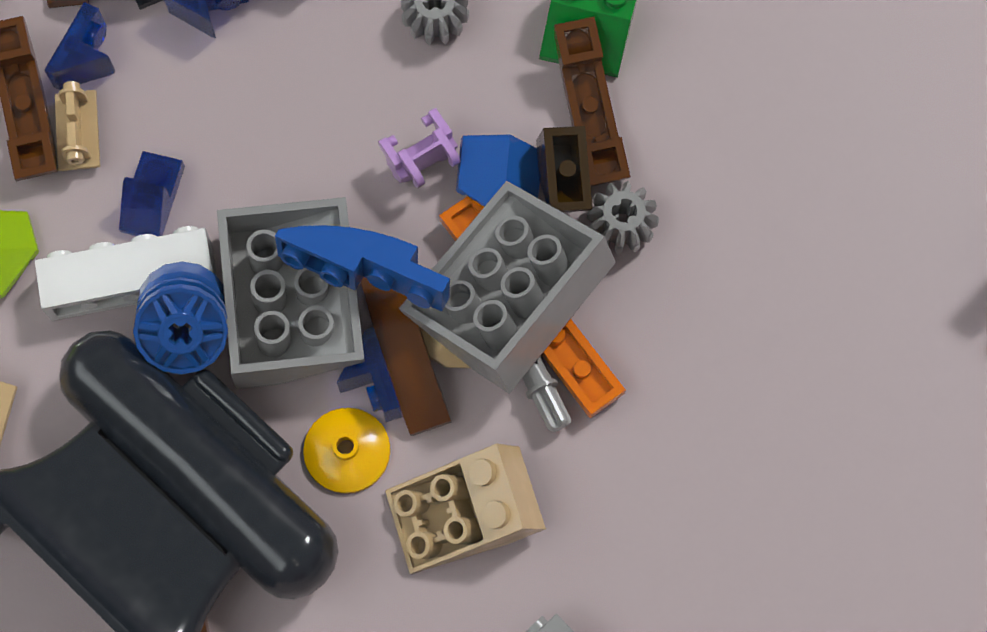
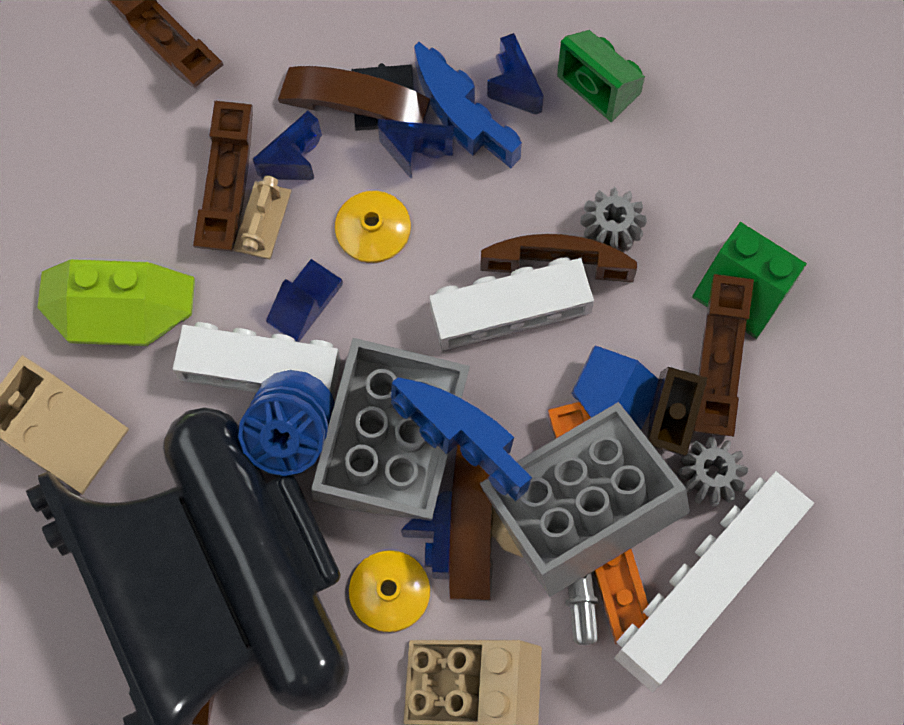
camera: 25 degrees right, 0 degrees up
(197, 114) = (375, 242): none -> yellow dish
(351, 131) = (511, 303): none -> white brick
(392, 54) = (609, 262): none -> reddish brown slope
(436, 147) = (553, 348): lavender piece -> none
(662, 320) = (713, 581): none -> white brick

